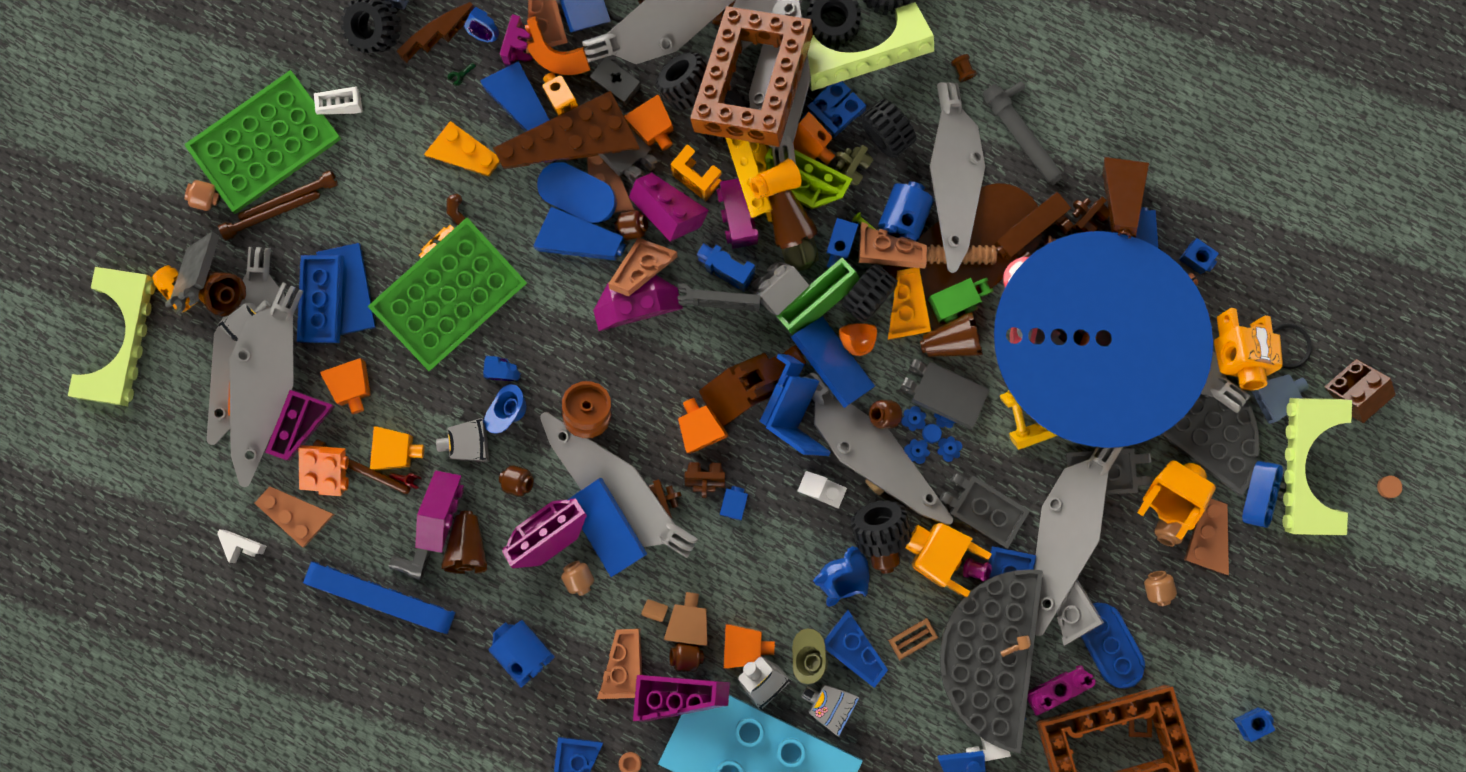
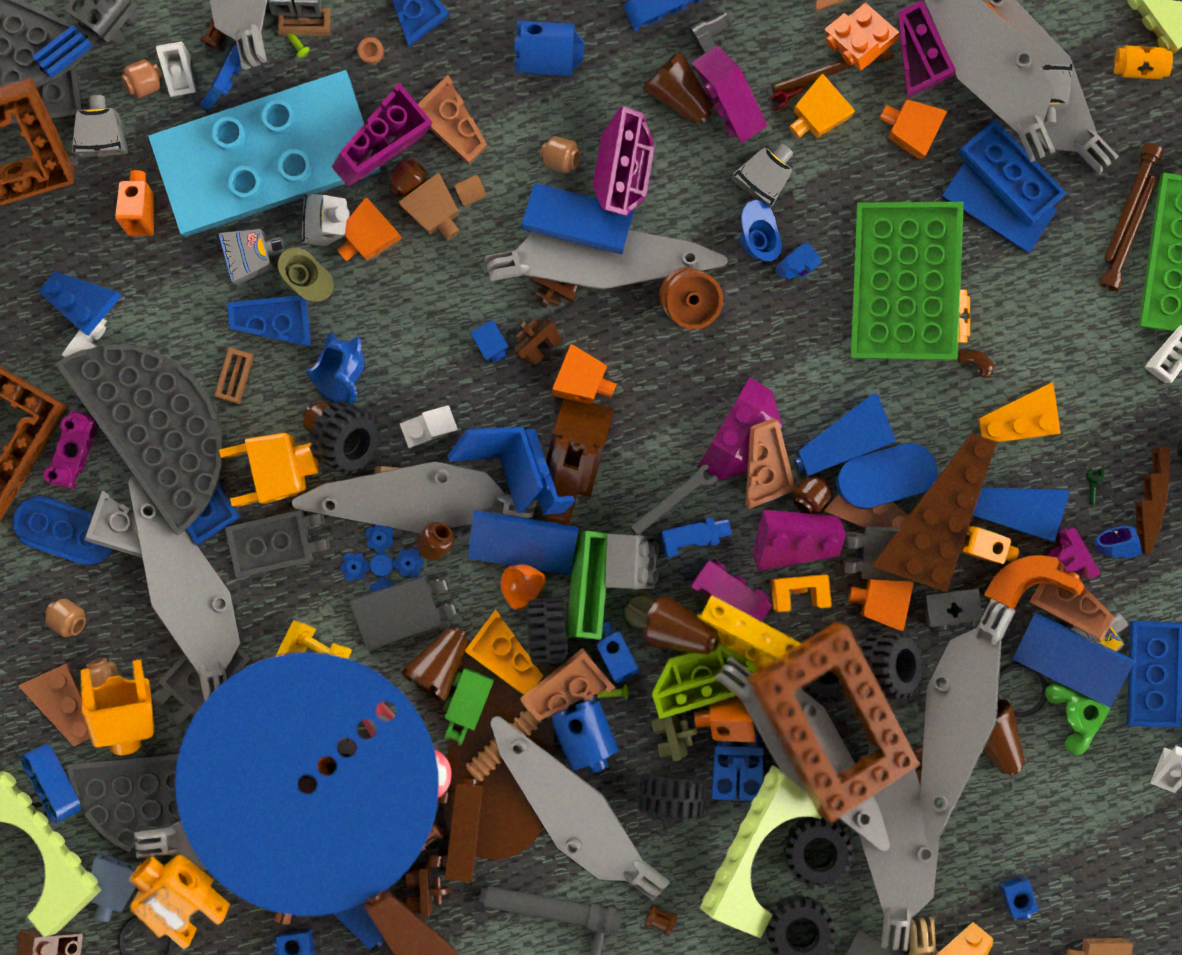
camera: 135 degrees right, 5 degrees up
(193, 272) = (1139, 87): dark grey tile -> none
(222, 293) = (1102, 92): reddish brown cone -> none
(516, 481) = (691, 184): reddish brown head -> none
(776, 180) = (720, 645): light orange plant -> none
(977, 569) = (233, 483): magenta bush -> none
(1023, 643) = (135, 456): medium nougat hand -> none

